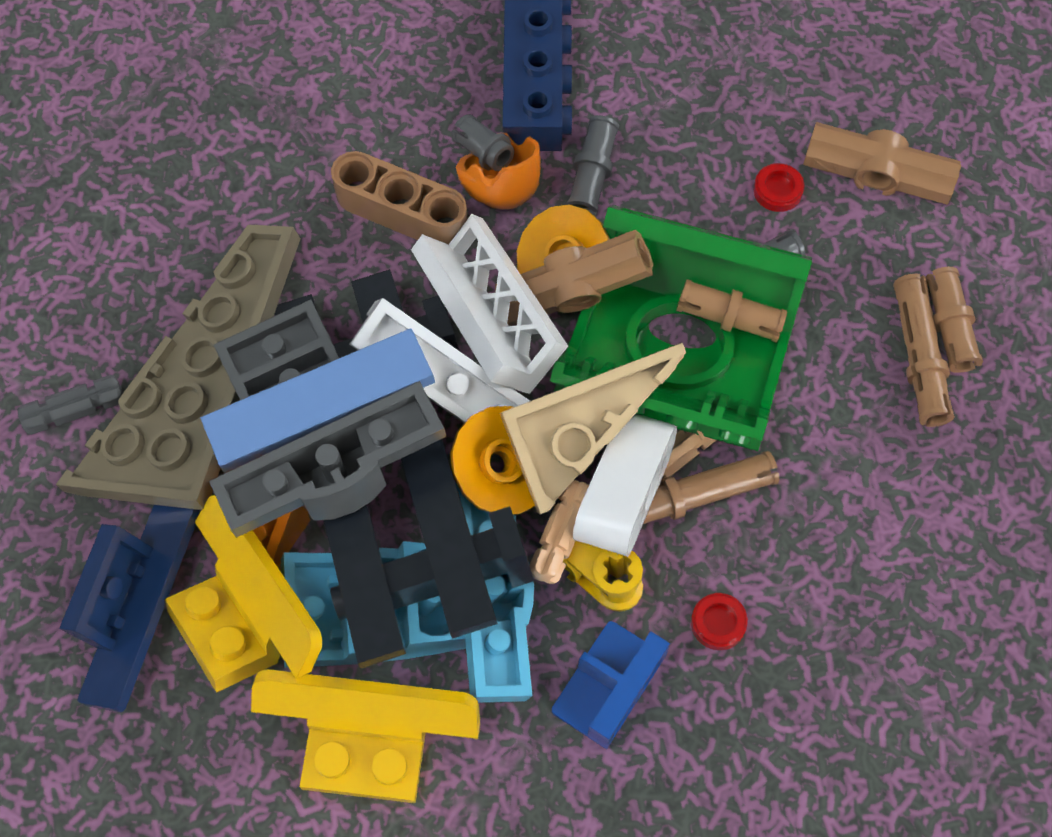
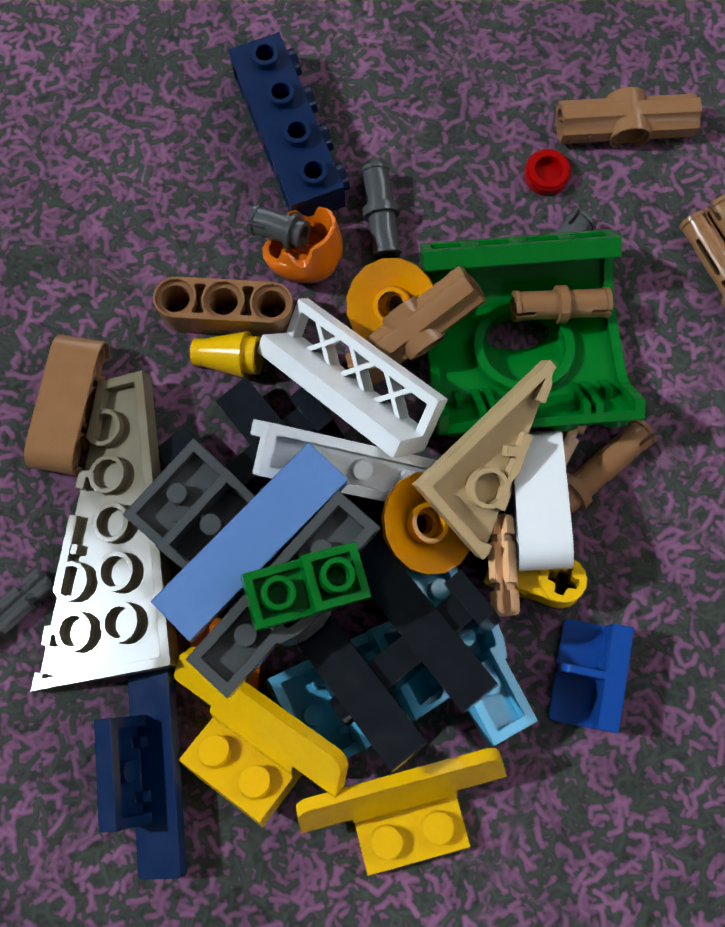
camera: 20 degrees left, 10 degrees up
(206, 234) = (65, 404): none -> medium nougat beam
(348, 455) = (305, 586): none -> green slope
(384, 245) = (228, 353): none -> yellow cone
(719, 621) = (656, 583): red tile -> none

